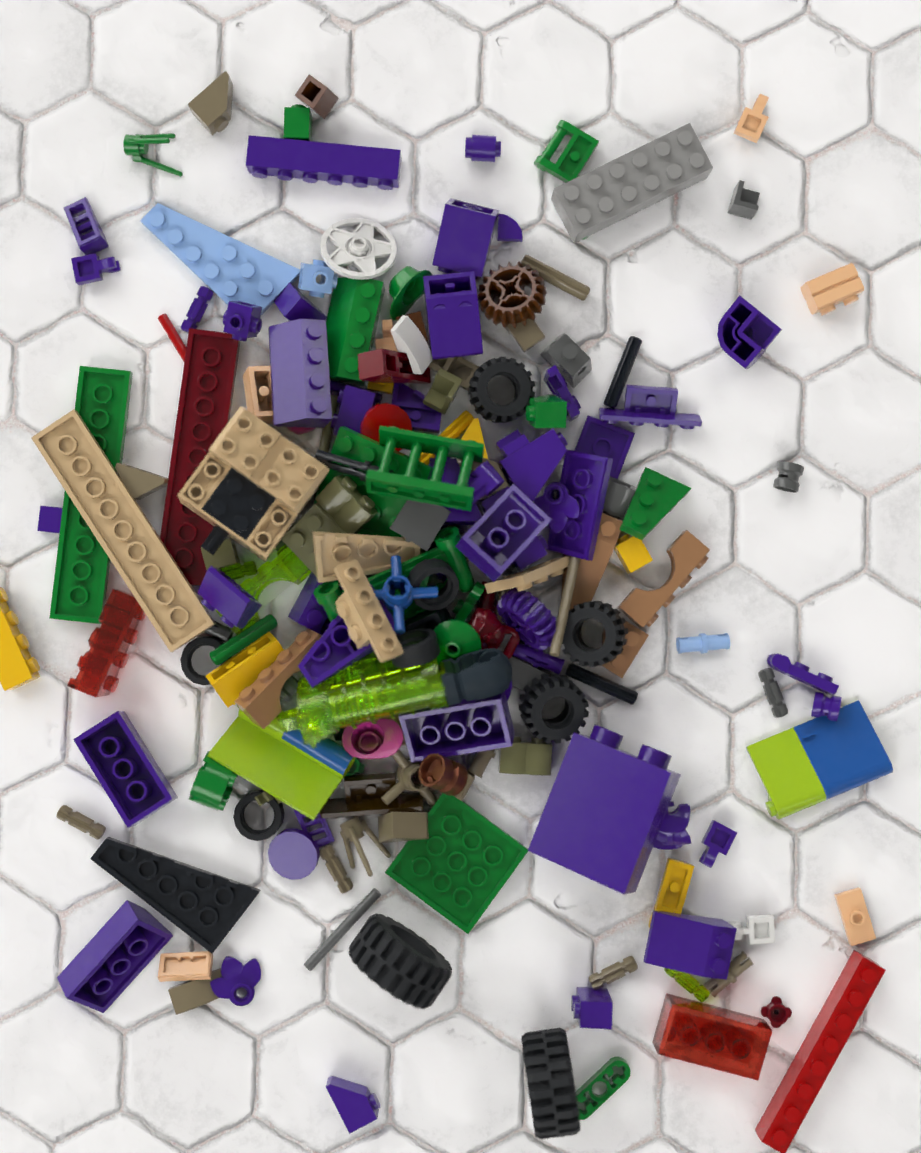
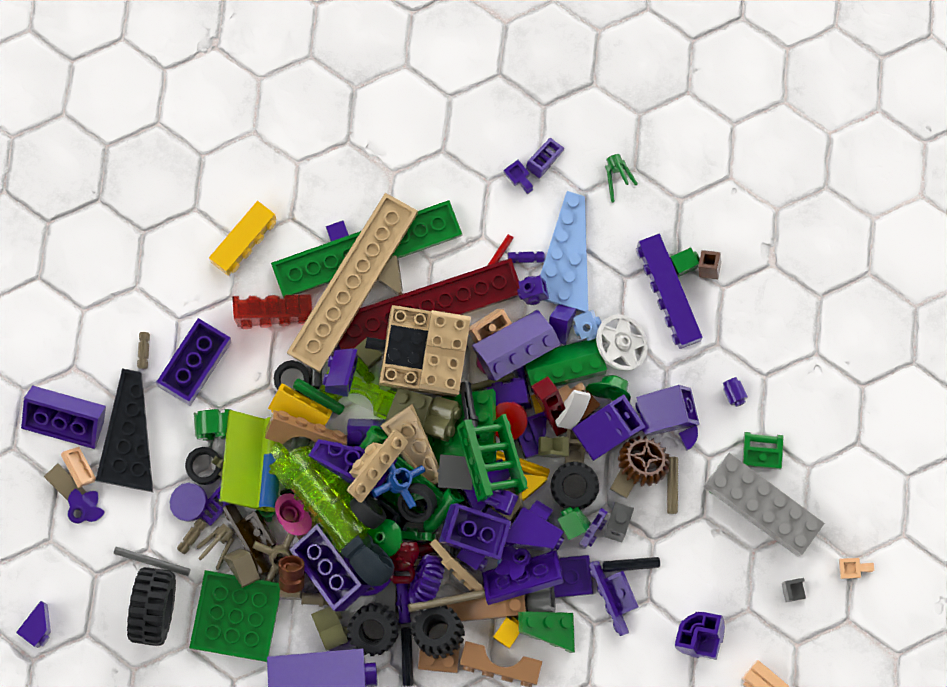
camera: 65 degrees right, 10 degrees down
(214, 104) = (670, 201): dark tan slope -> none

